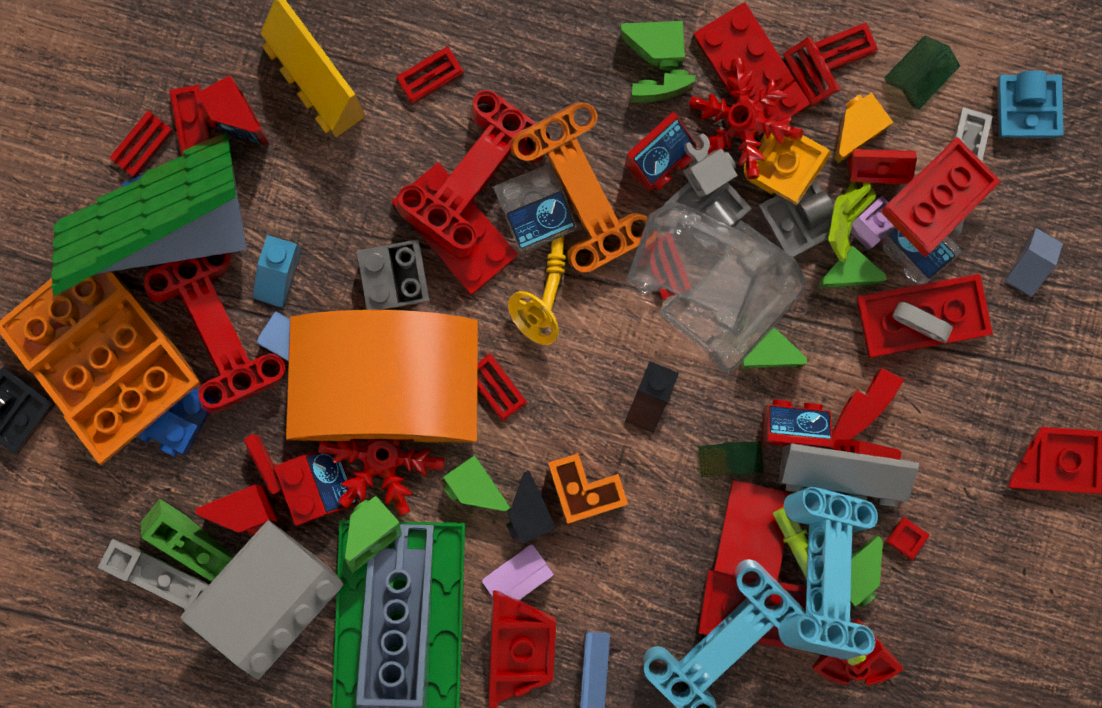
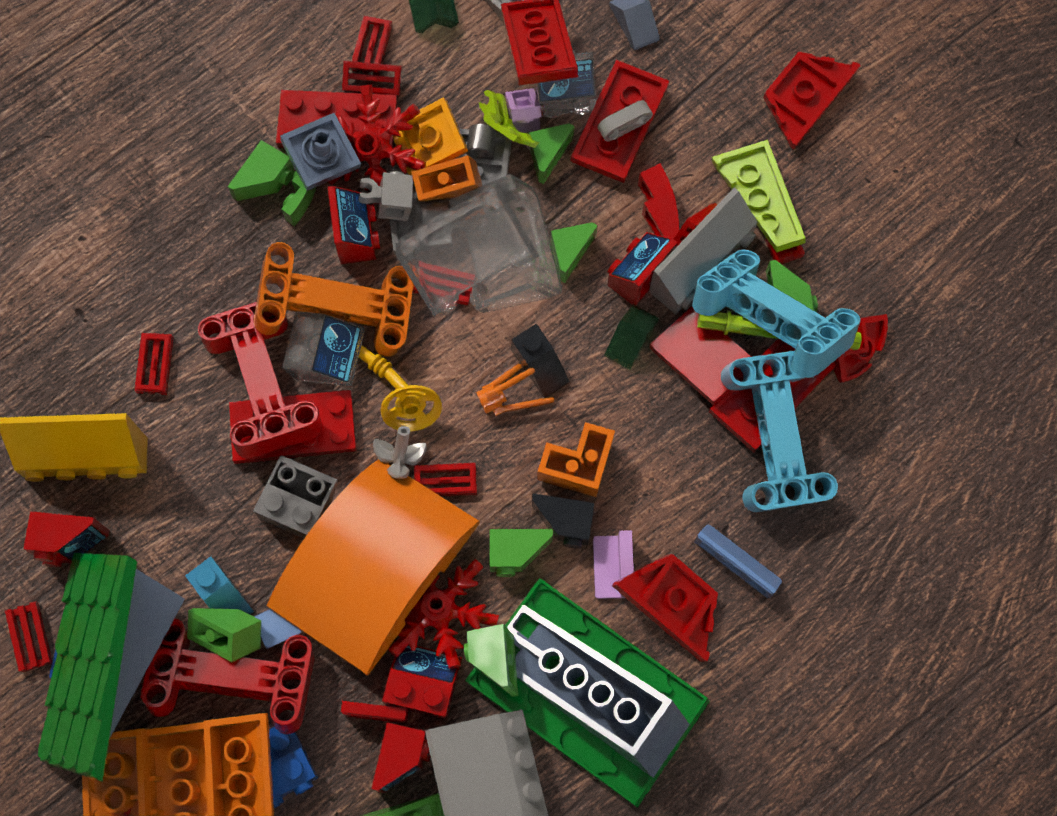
camera: 60 degrees left, 10 degrees down
(189, 122) = (36, 580): red tile -> none
(245, 299) = (225, 631): none -> bright green slope
(490, 334) = (401, 454): none -> light grey plant
(593, 378) = (492, 395): none -> orange plant
(705, 80) = (320, 151): none -> sand blue plate
(755, 207) = (447, 179): none -> orange slope
(860, 124) = (439, 69): light orange slope -> none
(881, 166) = (483, 72): red panel -> none
(944, 483) = (760, 183): none -> lime wing

